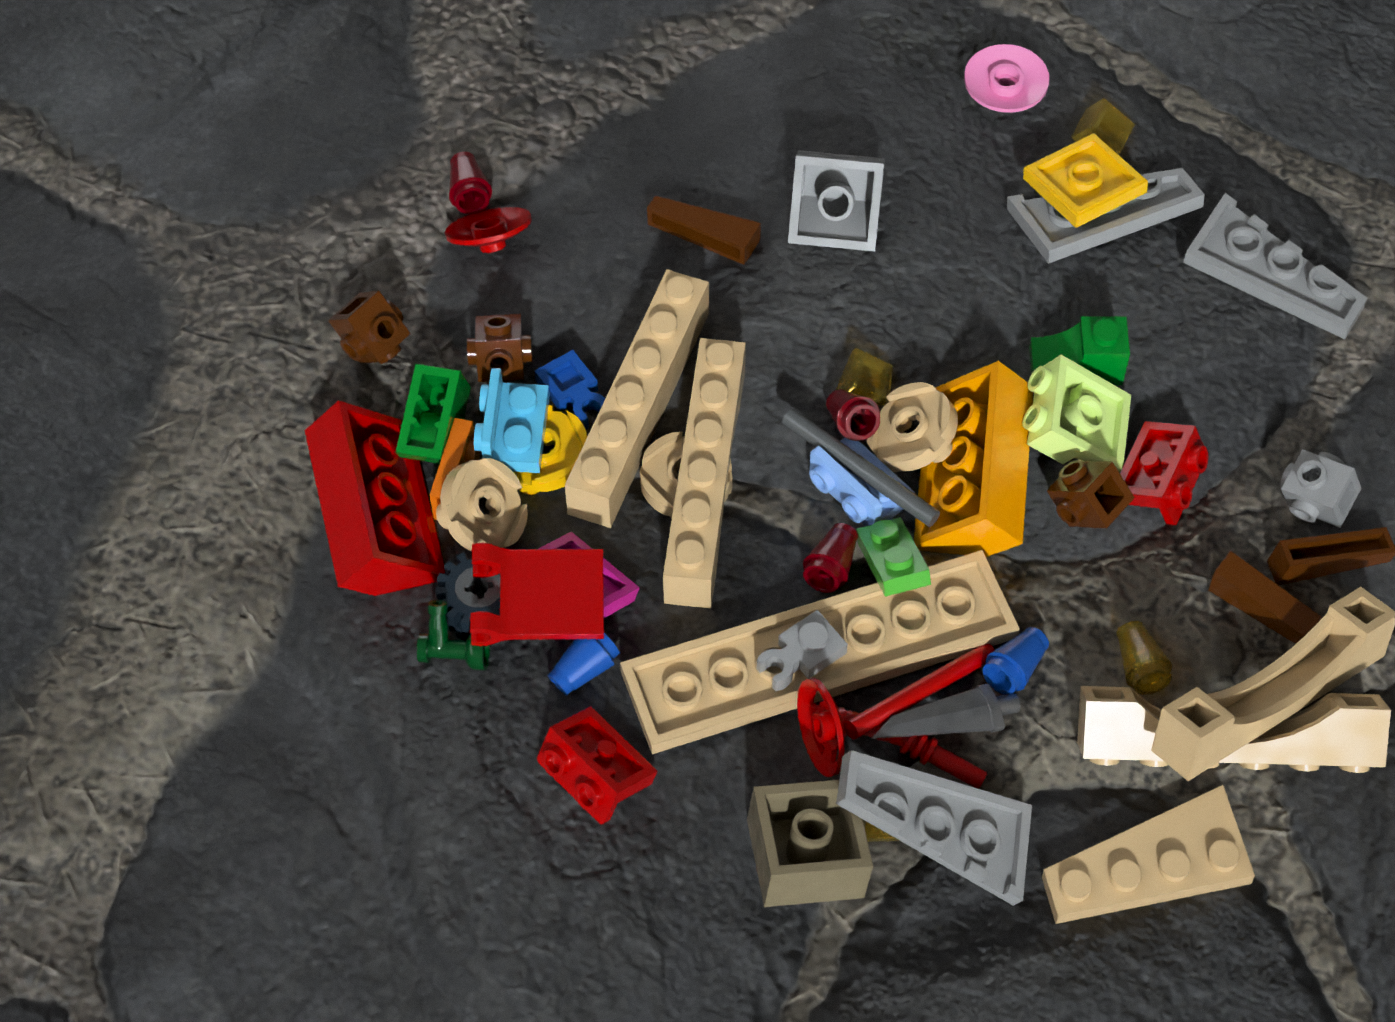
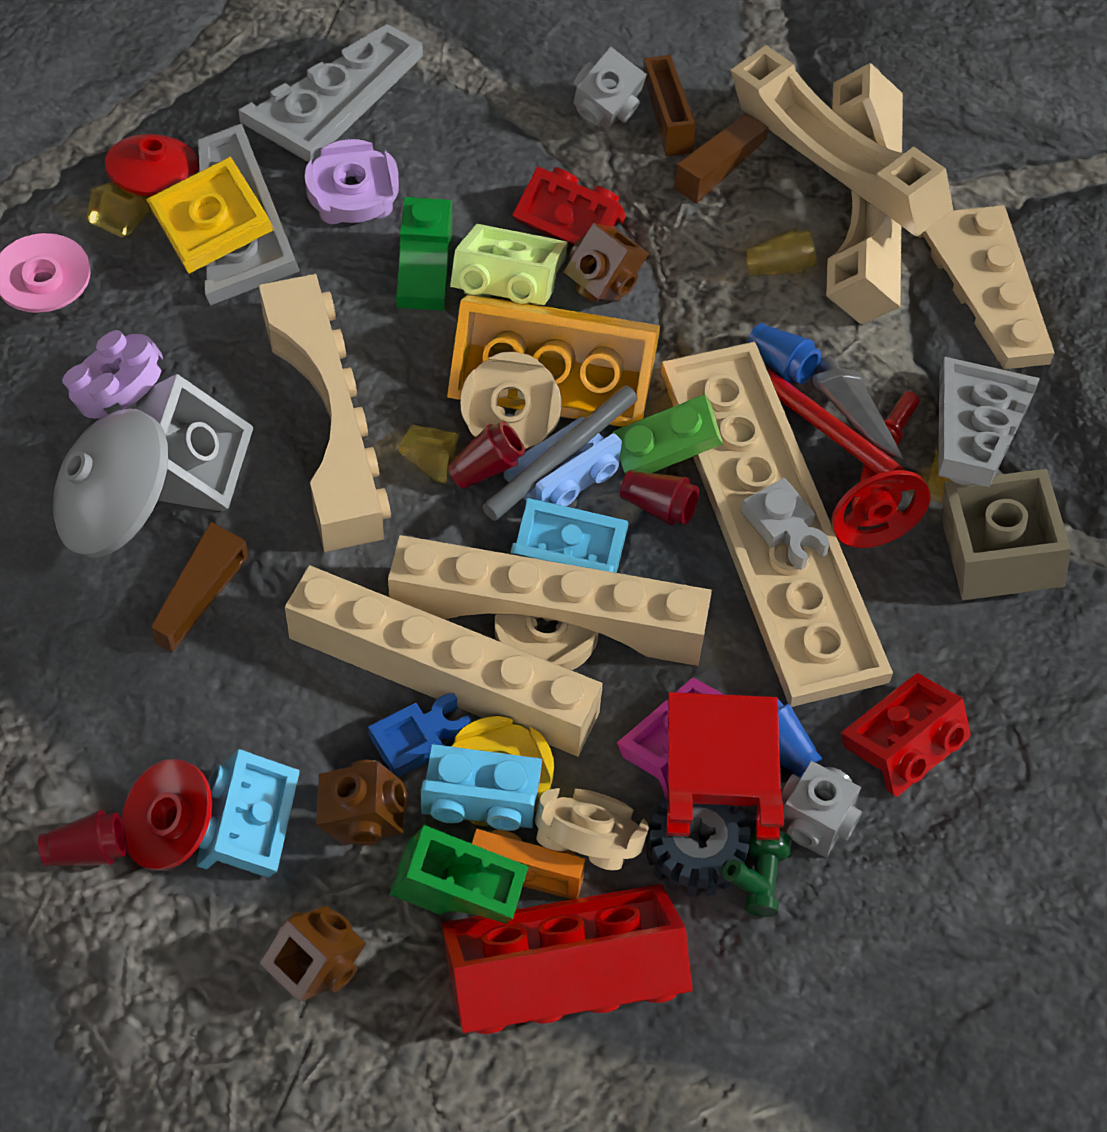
camera: 90 degrees left, 0 degrees up
(493, 281) = (248, 813): none -> medium azure bracket
(508, 682) = (820, 808): none -> light grey brick
(767, 485) = (570, 536): none -> medium azure bracket
(780, 136) = (110, 482): none -> light grey dish
(809, 315) = (343, 488): none -> tan arch
(895, 136) = (115, 373): none -> lavender plate
(1137, 141) = (150, 163): none -> red dish
(1157, 313) = (358, 202): none -> lavender plate

